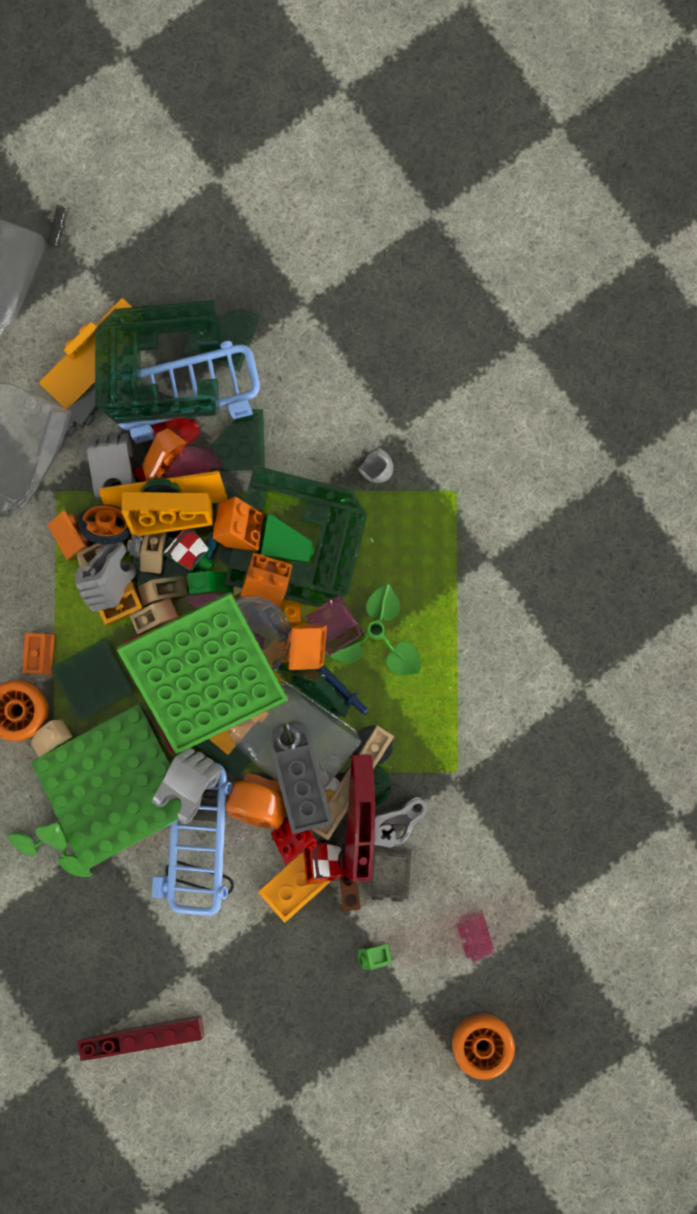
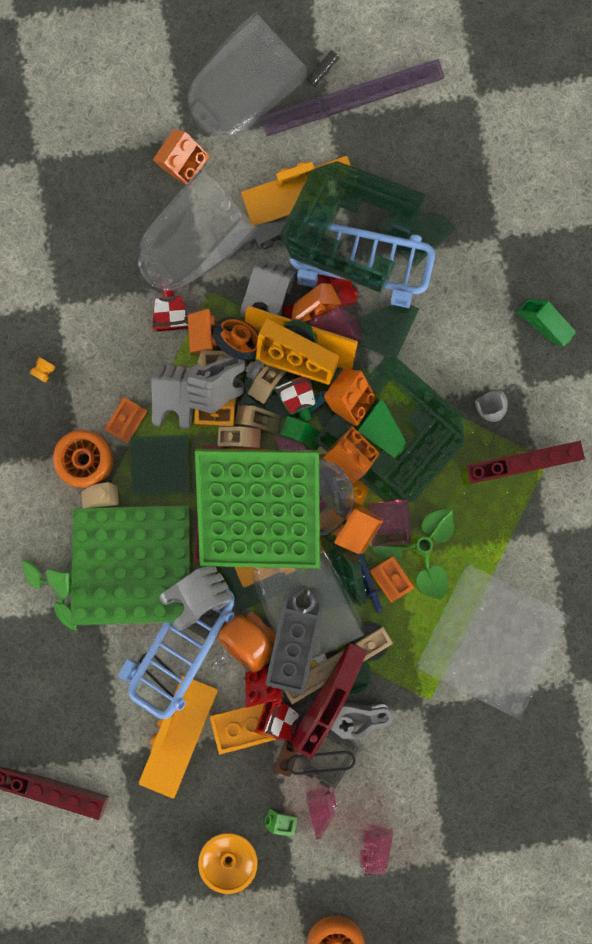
camera: 25 degrees right, 0 degrees up
(29, 531) = (169, 313): none -> torso
(68, 608) = (170, 394): none -> light grey piece
(99, 240) = (352, 97): none -> clear purple plate
(238, 929) = (177, 740): none -> light orange bracket
(344, 1033) = (223, 875): none -> light orange dish
(363, 676) = (392, 578): none -> orange plate
(387, 888) = (321, 771): none -> black piece
(389, 361) = (547, 321): none -> green slope
(404, 923) = (321, 808): none -> clear pink slope
(433, 504) = (525, 462): none -> dark red slope
(488, 687) = (493, 641): none -> clear plate

